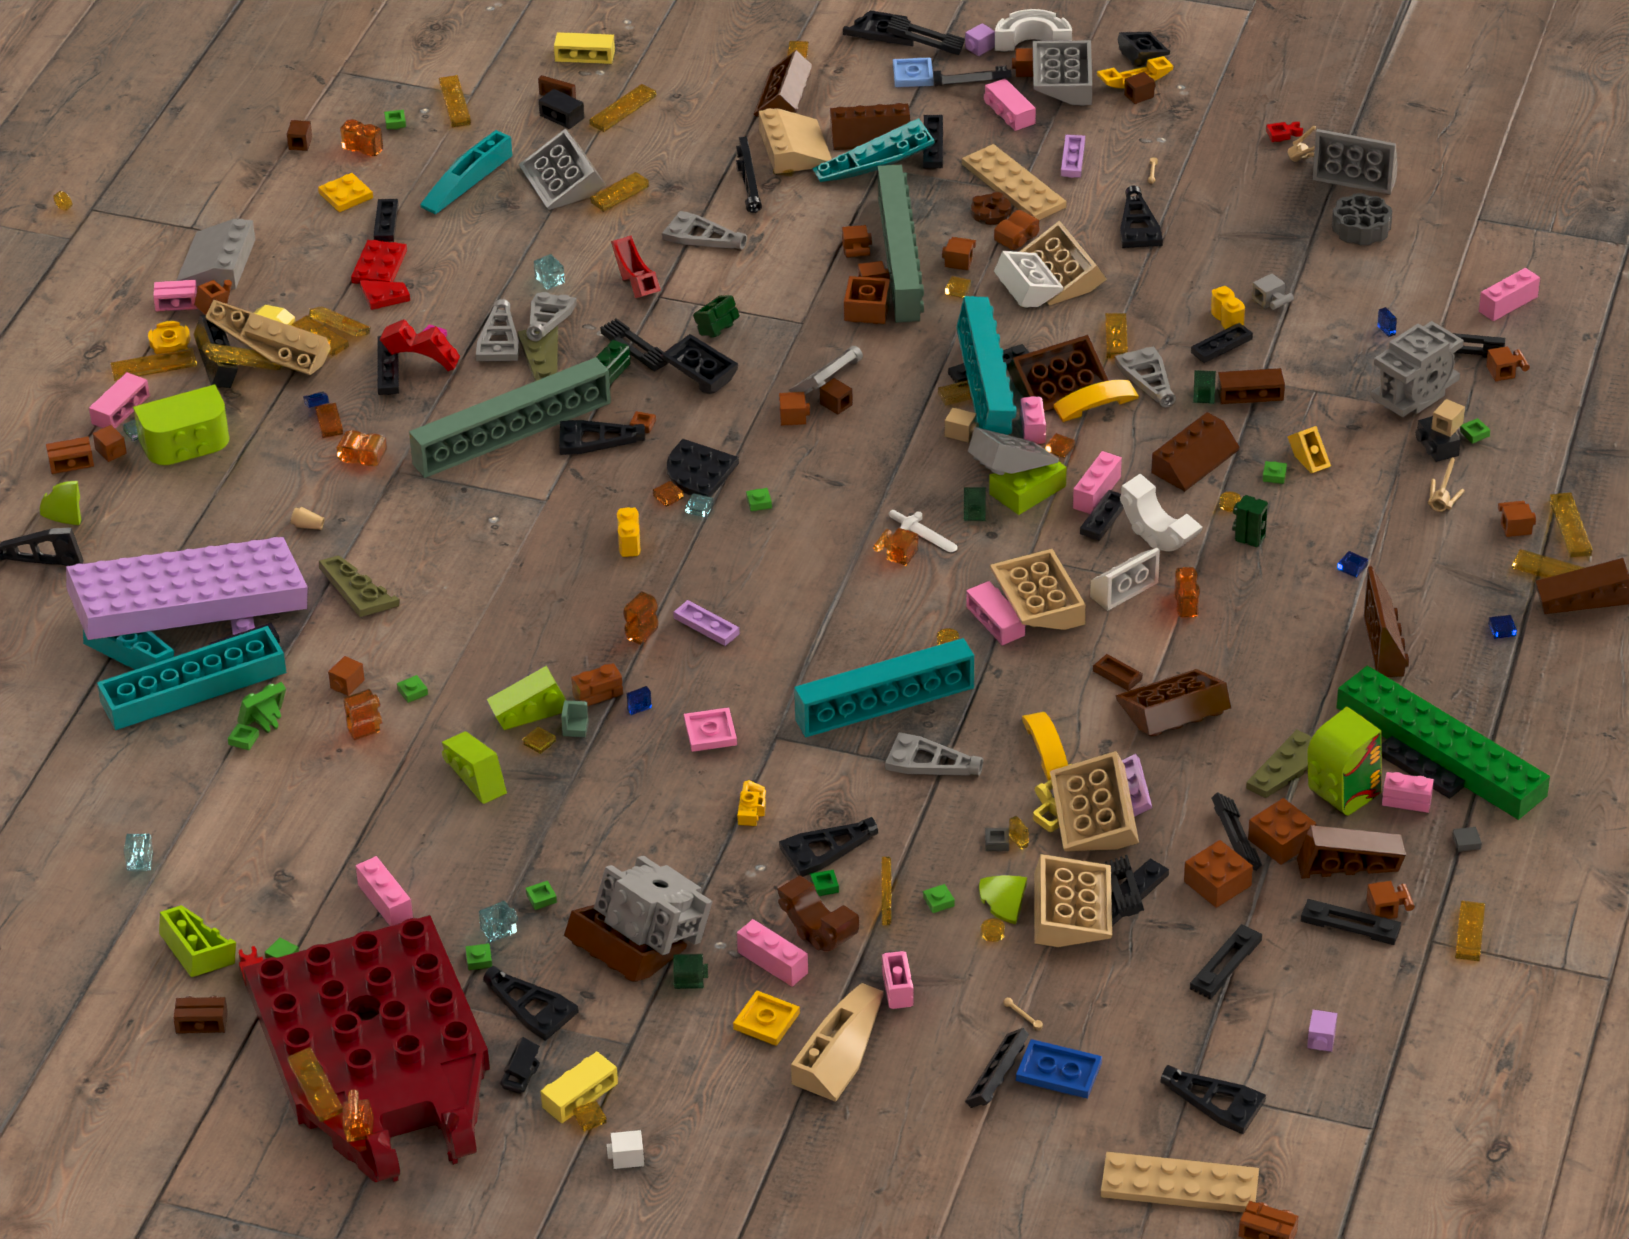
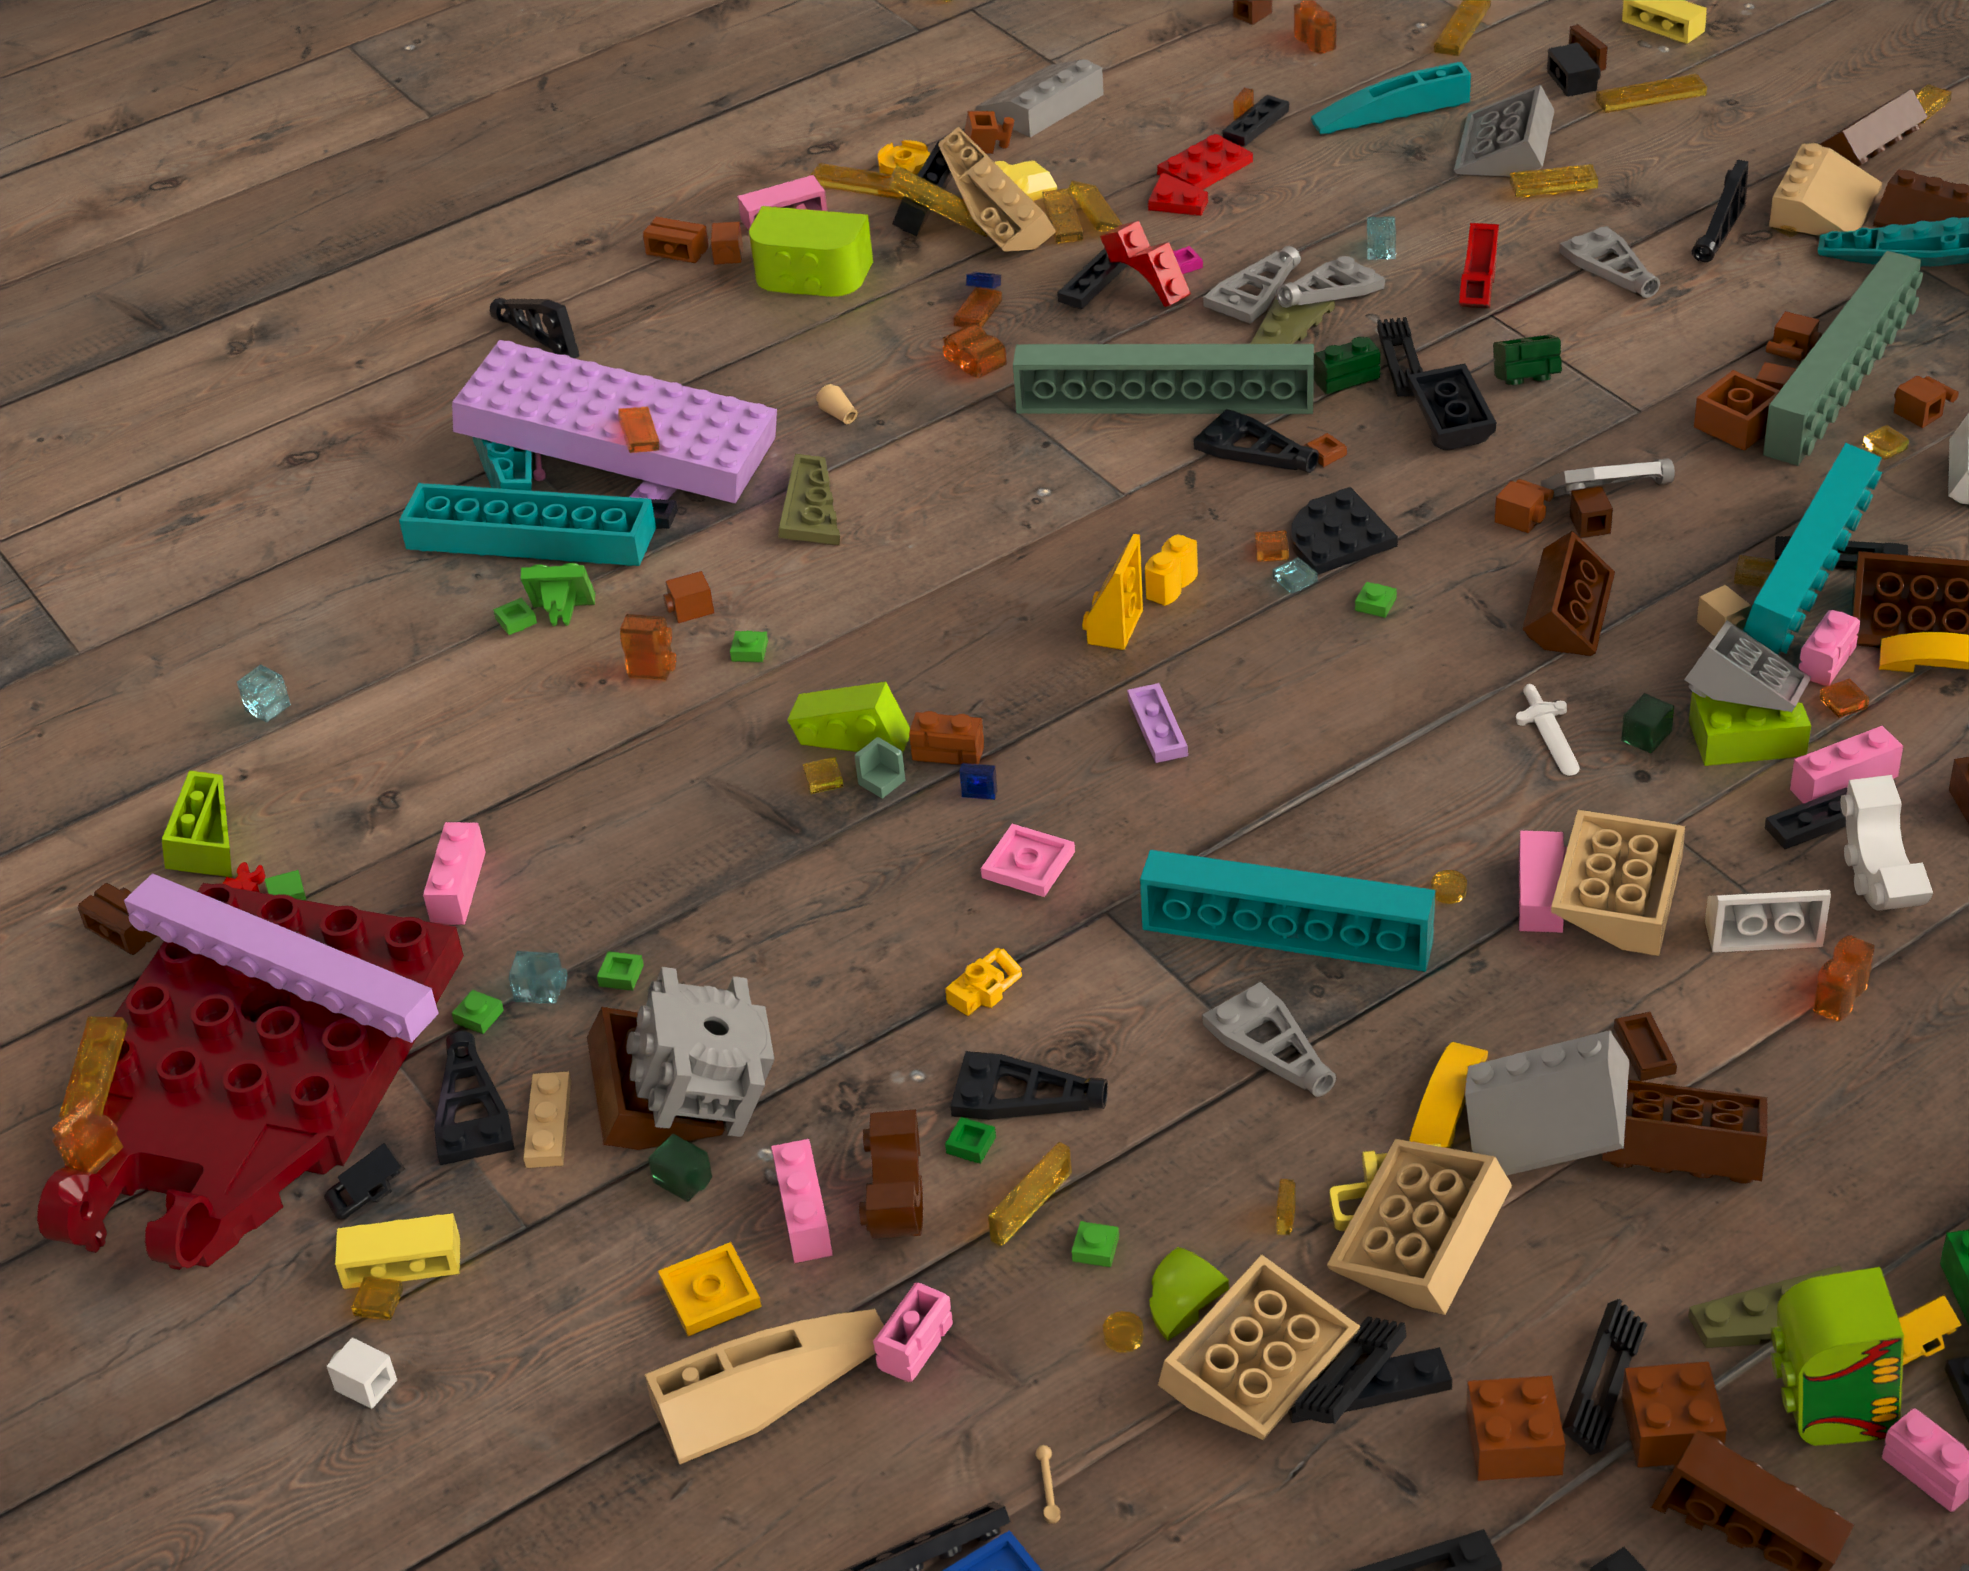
camera: 40 degrees right, 0 degrees up
(62, 503) = (606, 282): lime brick -> none
(175, 295) = (946, 115): bright pink brick -> none
(226, 584) = (638, 429): none -> clear orange tile
(345, 192) = (1251, 74): yellow plate -> none
(360, 973) = (282, 958): none -> lavender brick
(369, 214) = (1243, 102): none -> clear orange tile
(395, 119) = (1373, 21): bright green plate -> none
(475, 766) = (704, 770): lime wedge -> none
(583, 988) = (547, 1120): none -> tan plate
(620, 560) = (1118, 602): none -> yellow slope
(640, 617) = (1074, 677): clear orange brick -> none
(868, 451) = (1569, 597): none -> reddish brown slope
(900, 546) = (1494, 734): clear orange brick -> none
(996, 839) = (1253, 1201): dark grey tile -> none
(1109, 716) = (1549, 1103): none -> light grey slope
(1137, 785) = (1513, 1223): lavender plate -> none

